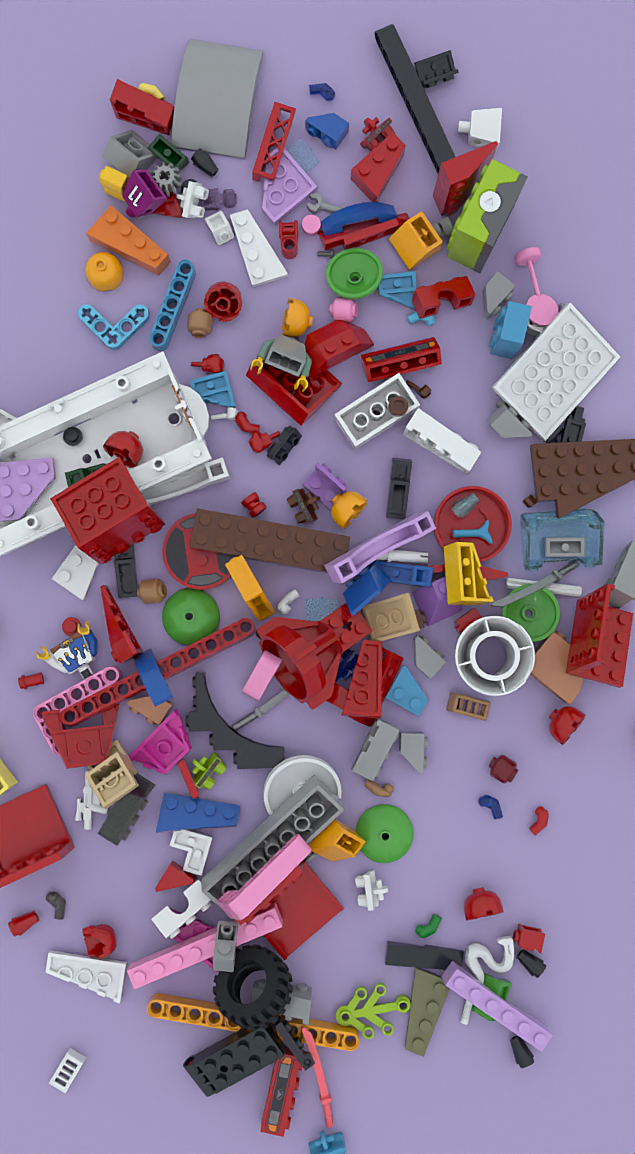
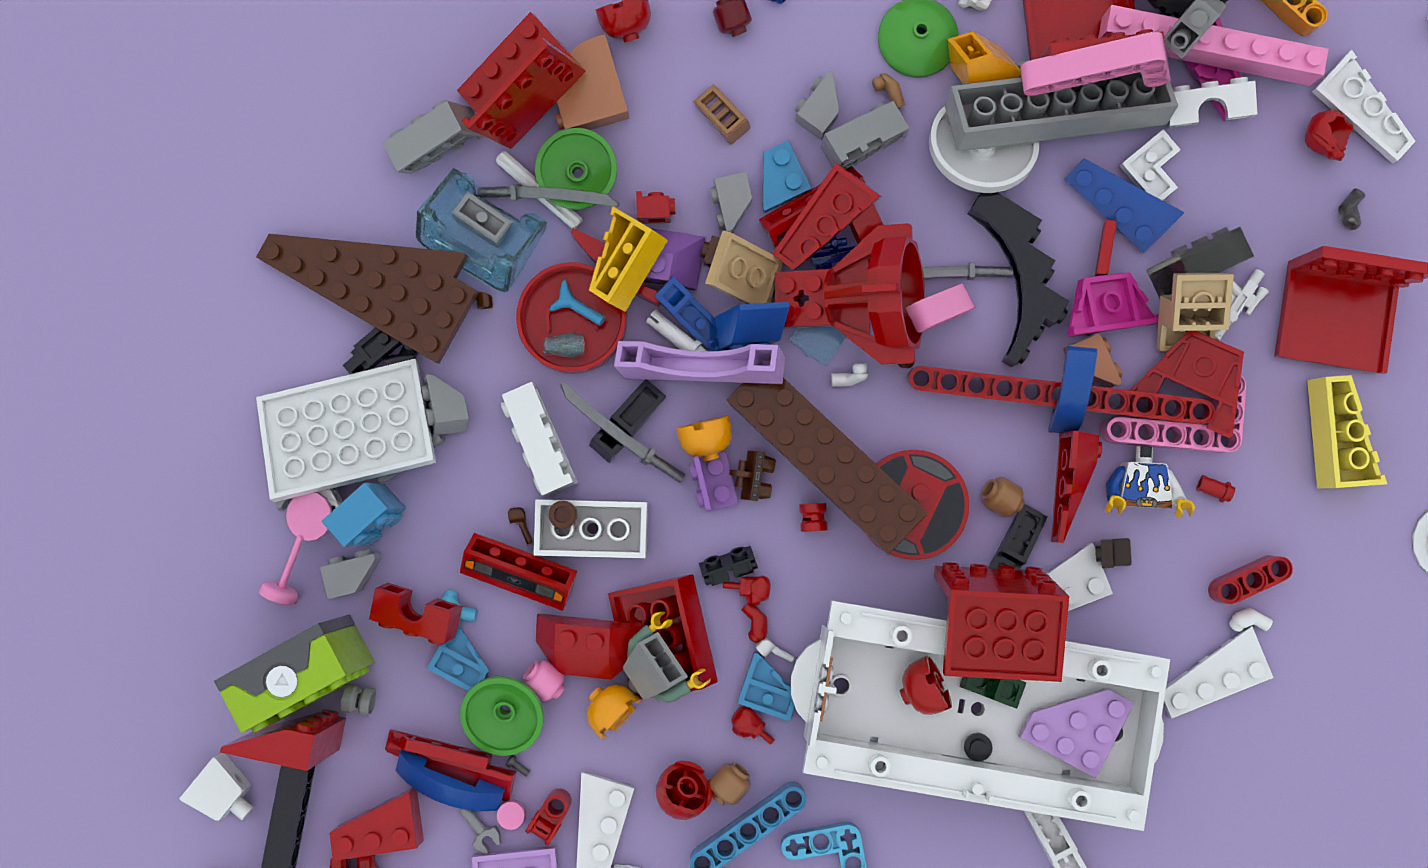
camera: 140 degrees left, 0 degrees up
(22, 923) = (1406, 214): red cone -> none
(66, 602) = (1114, 552): none -> dark brown bracket
(70, 626) = (1127, 521): red plate -> none
(175, 877) = (1195, 146): red slope -> none
(195, 479) = (845, 589): white arch -> none
(204, 612) = (957, 440): bright green dish -> none
(204, 769) = (1078, 247): lime hips -> none
(250, 588) = (886, 419): light orange brick -> none
(373, 475) = (647, 455): none -> flat silver sword
(416, 241) = (399, 705): light orange slope -> none
(519, 655) = (648, 112): white cone -> none

